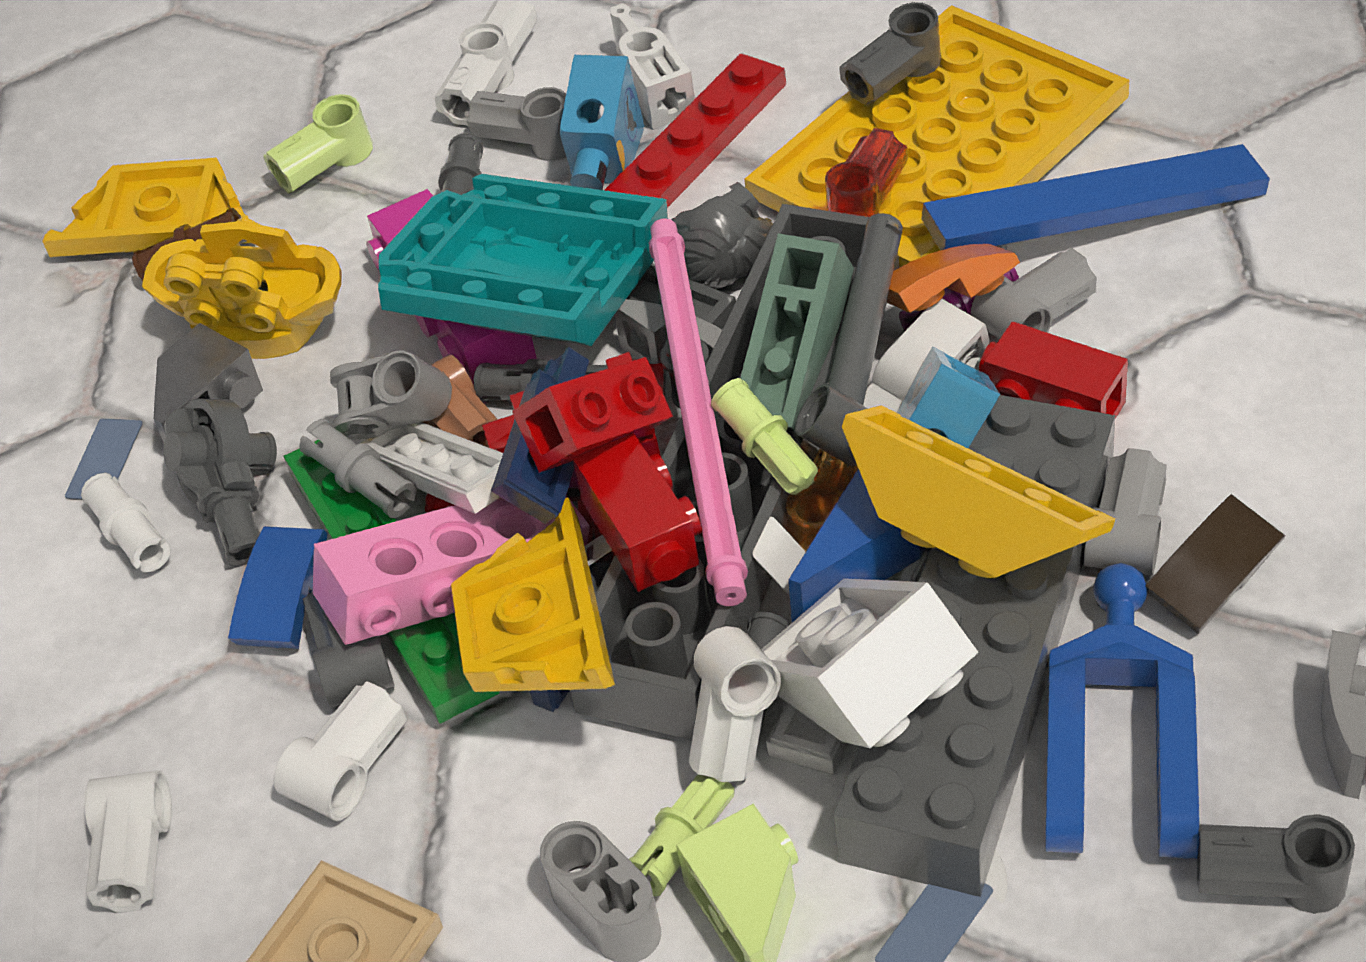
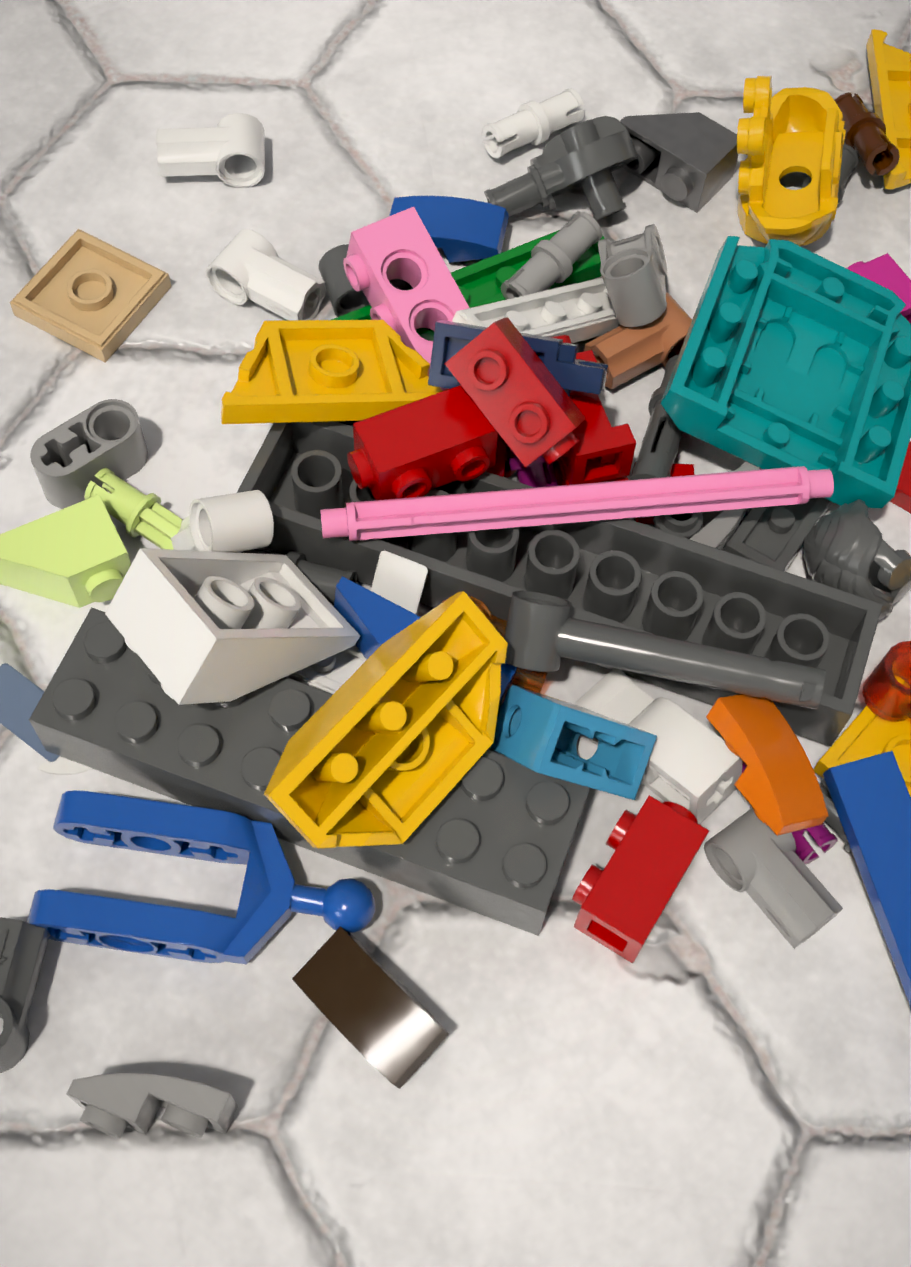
camera: 80 degrees right, 15 degrees up
(105, 452) = (603, 104): sand blue sticker -> none
(764, 436) = (516, 556): yellowish green axle -> none
(796, 322) = (659, 586): sand green slope -> none
(1134, 498) = (426, 923): light grey piece -> none

